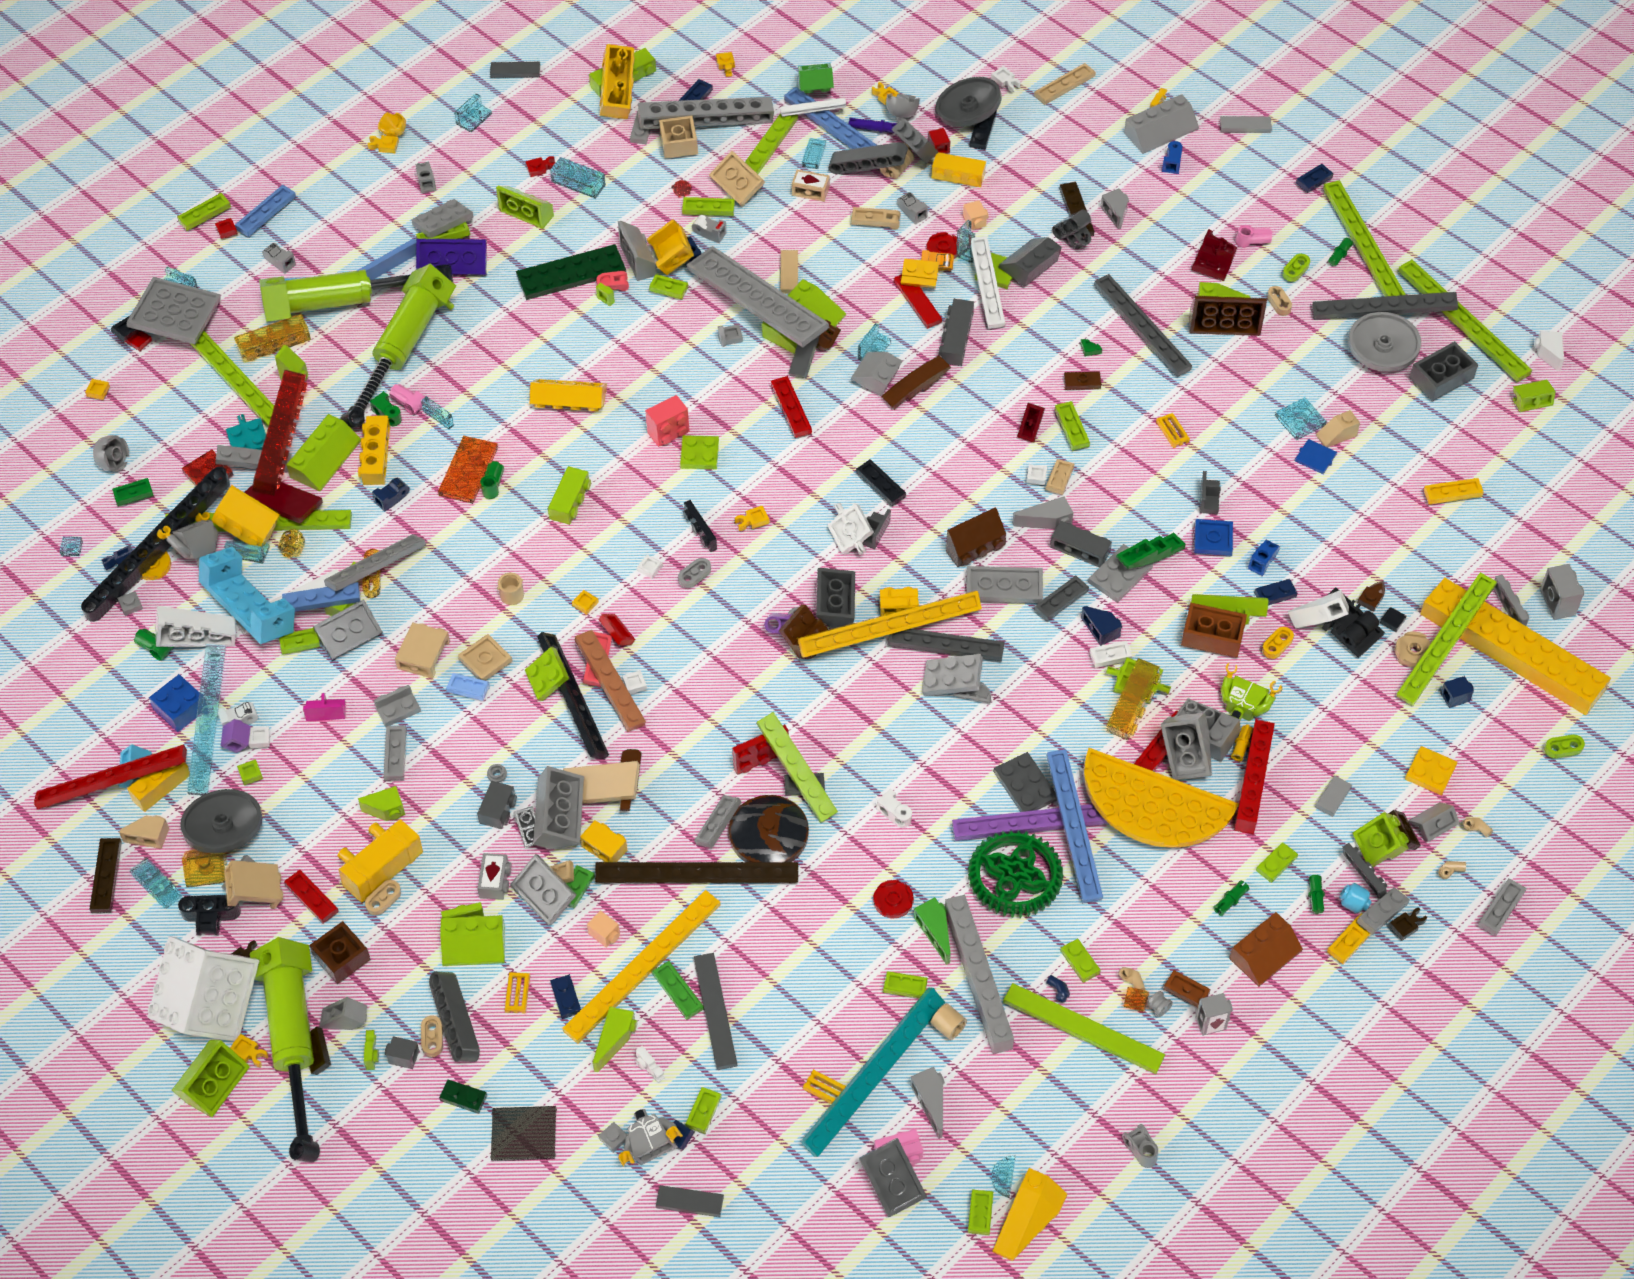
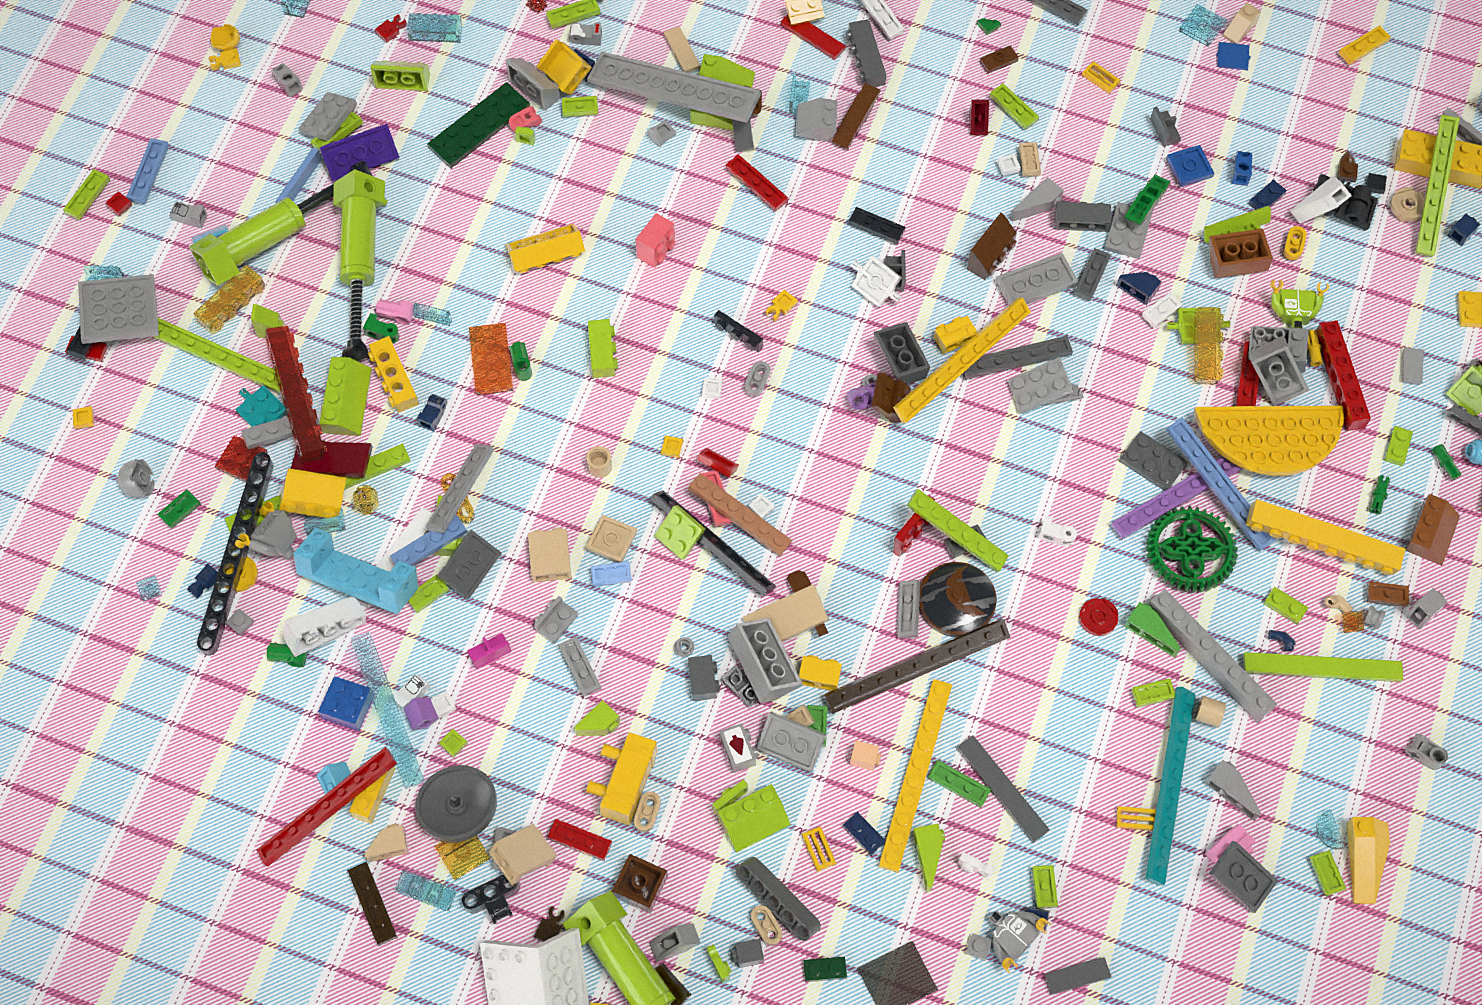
camera: 25 degrees left, 10 degrees up
(699, 452) = (696, 258): lime plate -> none
(1150, 912) = (1325, 537): none -> yellow brick

